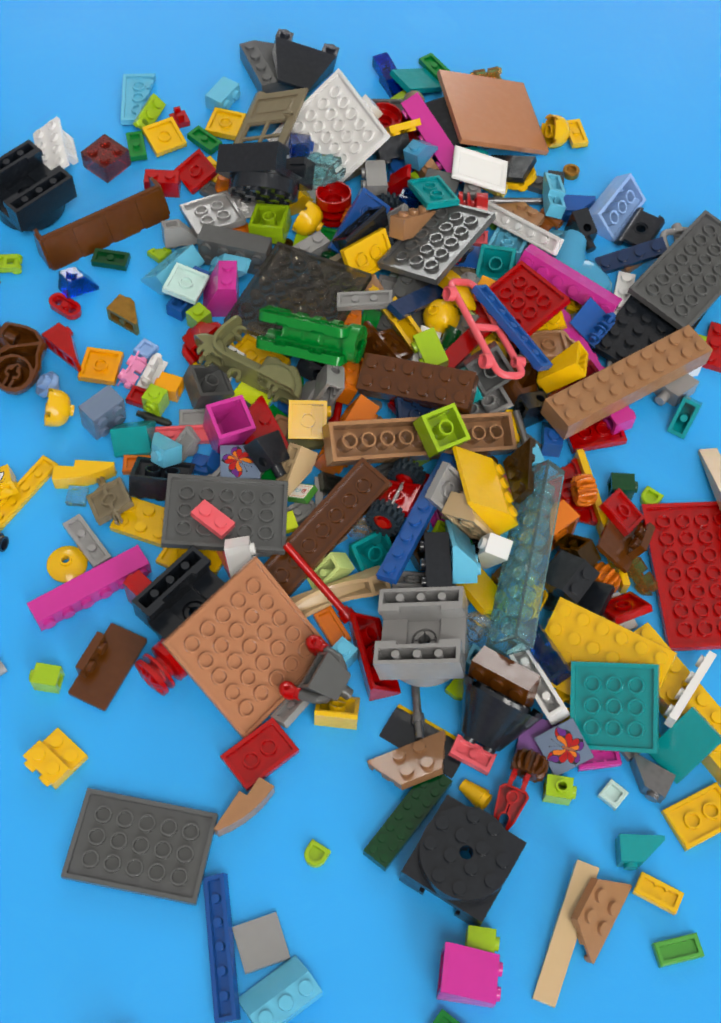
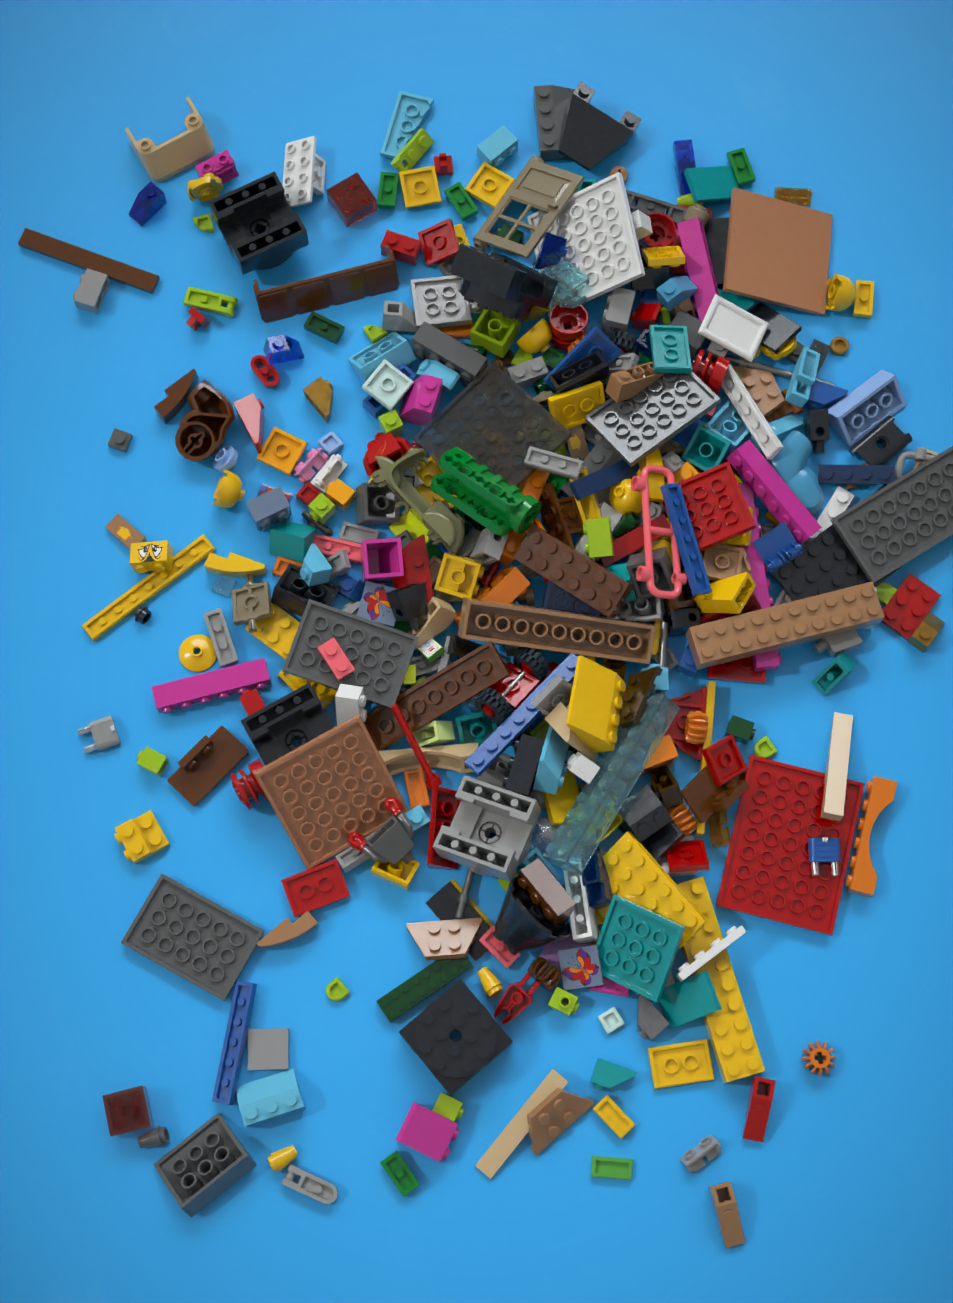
camera: 20 degrees right, 15 degrees up
(441, 430) = (574, 634): lime brick -> none

